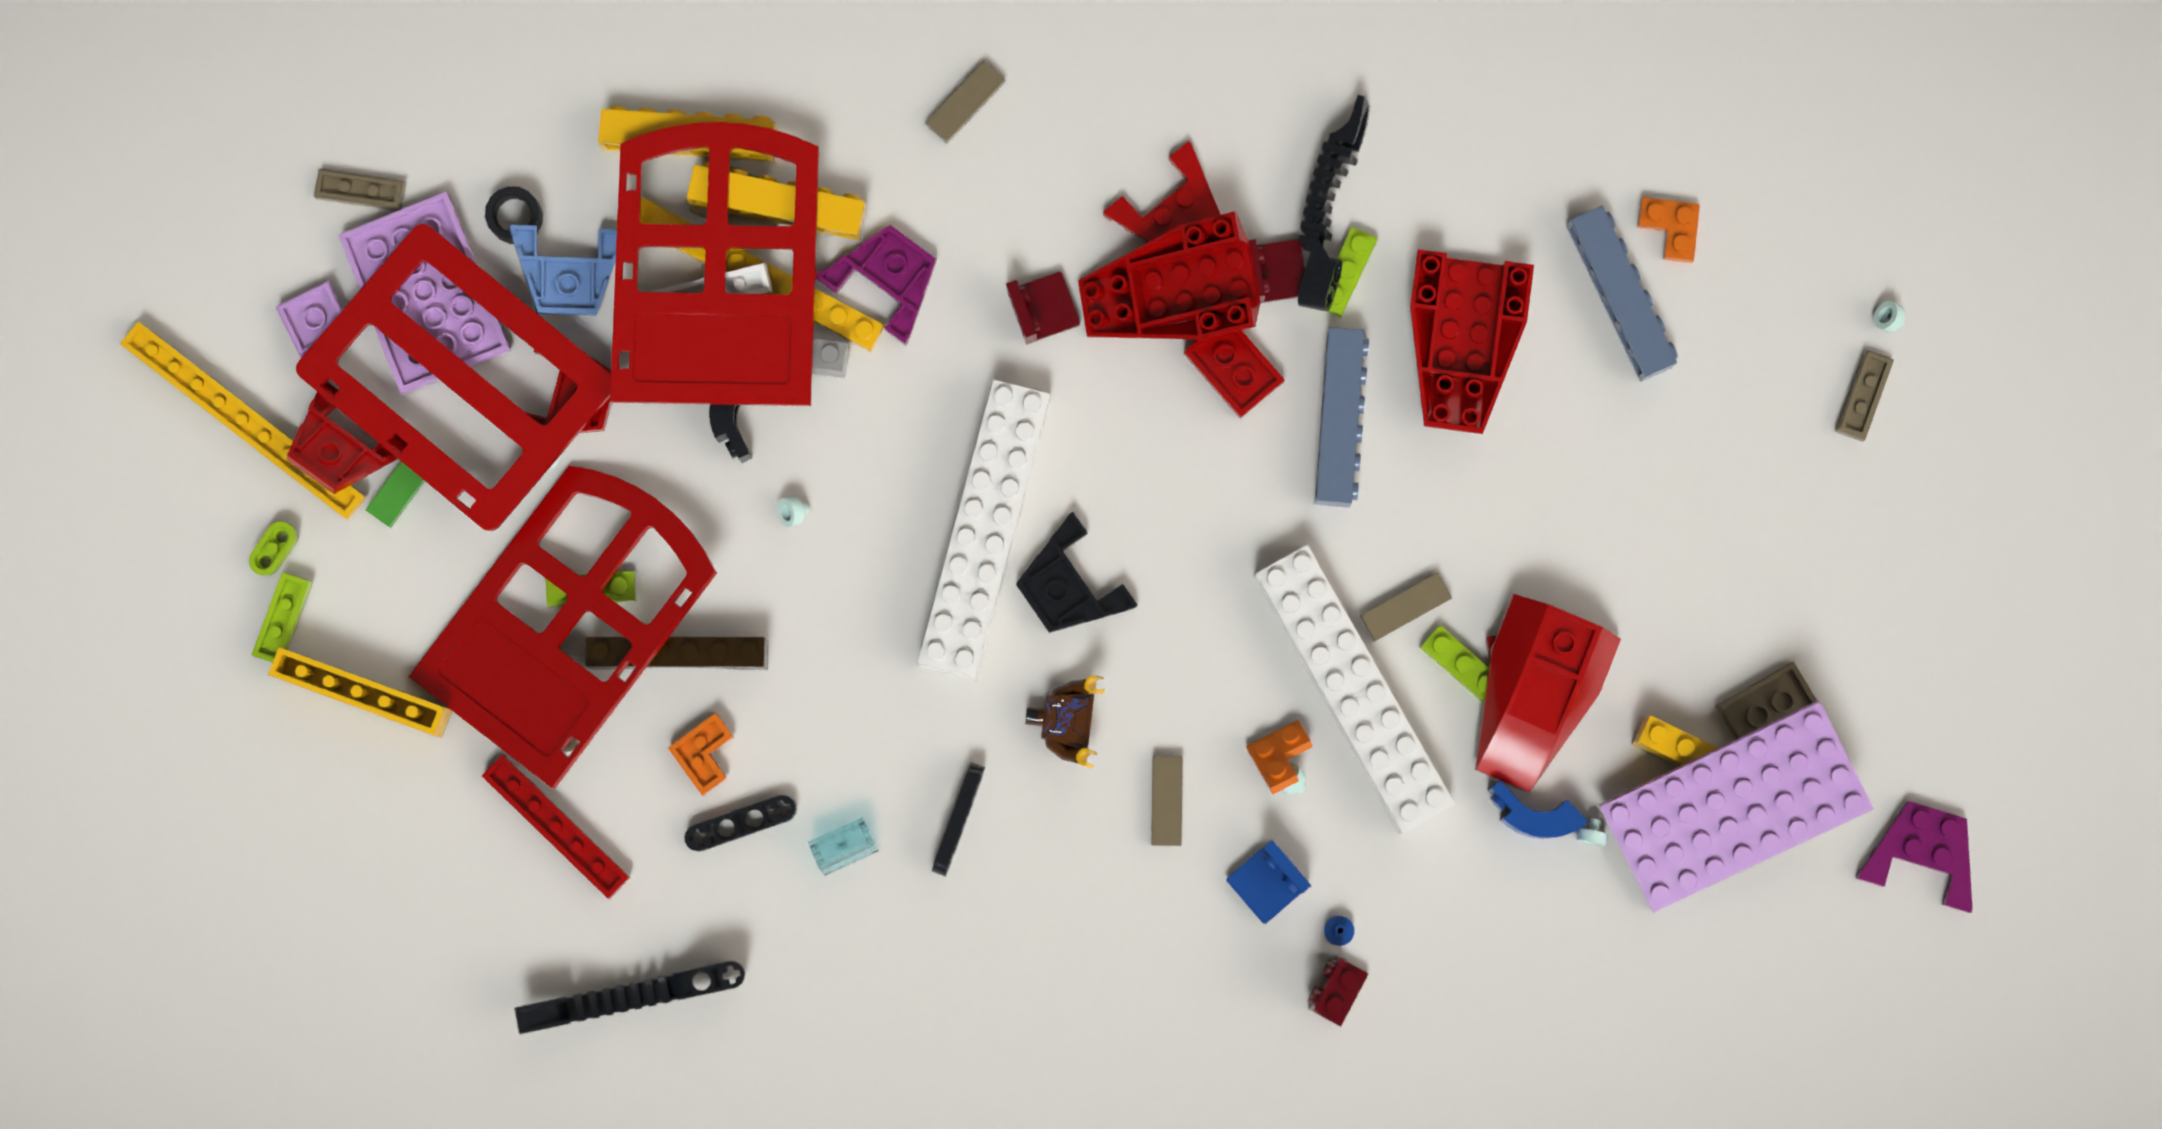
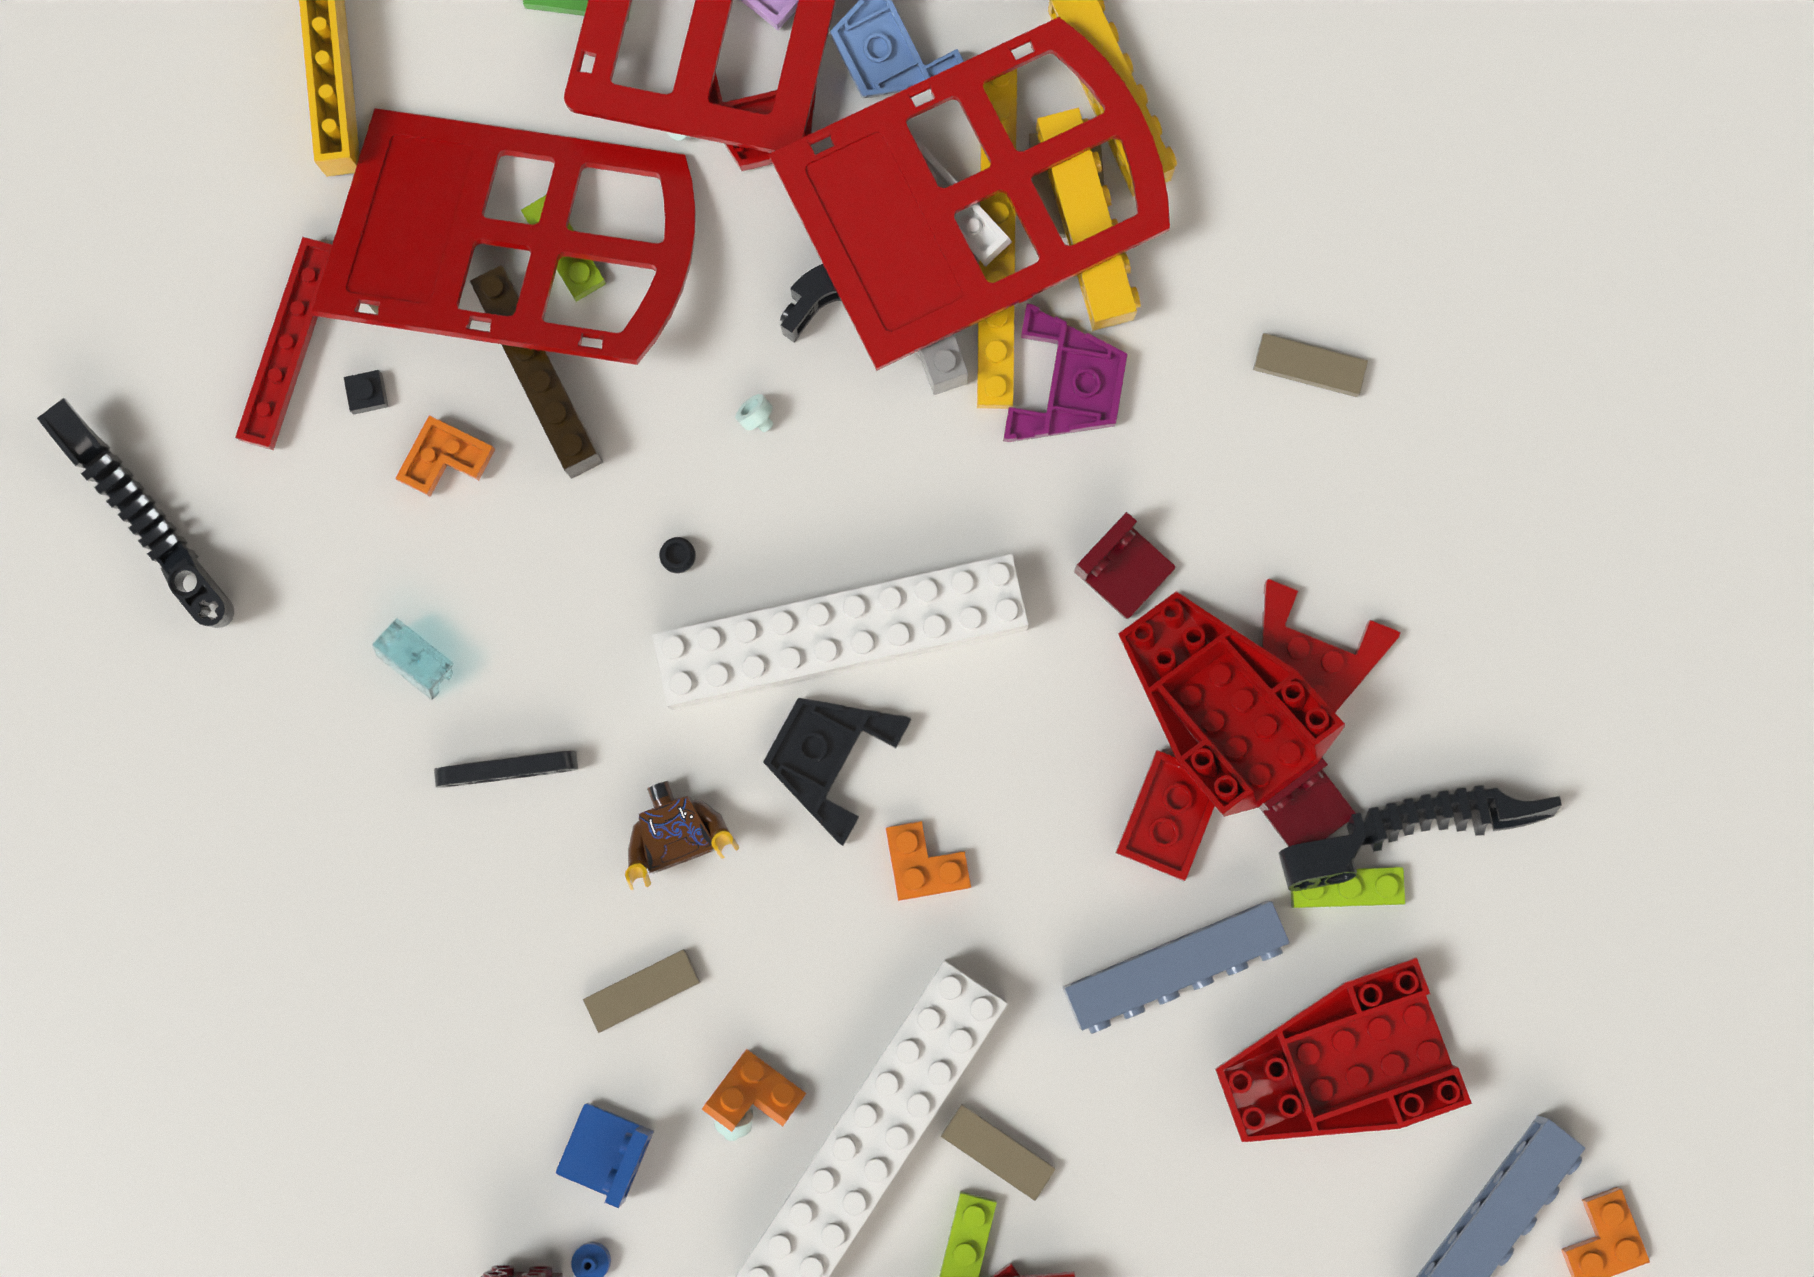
camera: 65 degrees right, 0 degrees up
(623, 787) = (365, 392): none -> black plate
(739, 819) = (385, 539): black beam -> none
(866, 619) = (677, 555): none -> black plate
(1181, 564) = (915, 872): none -> orange plate

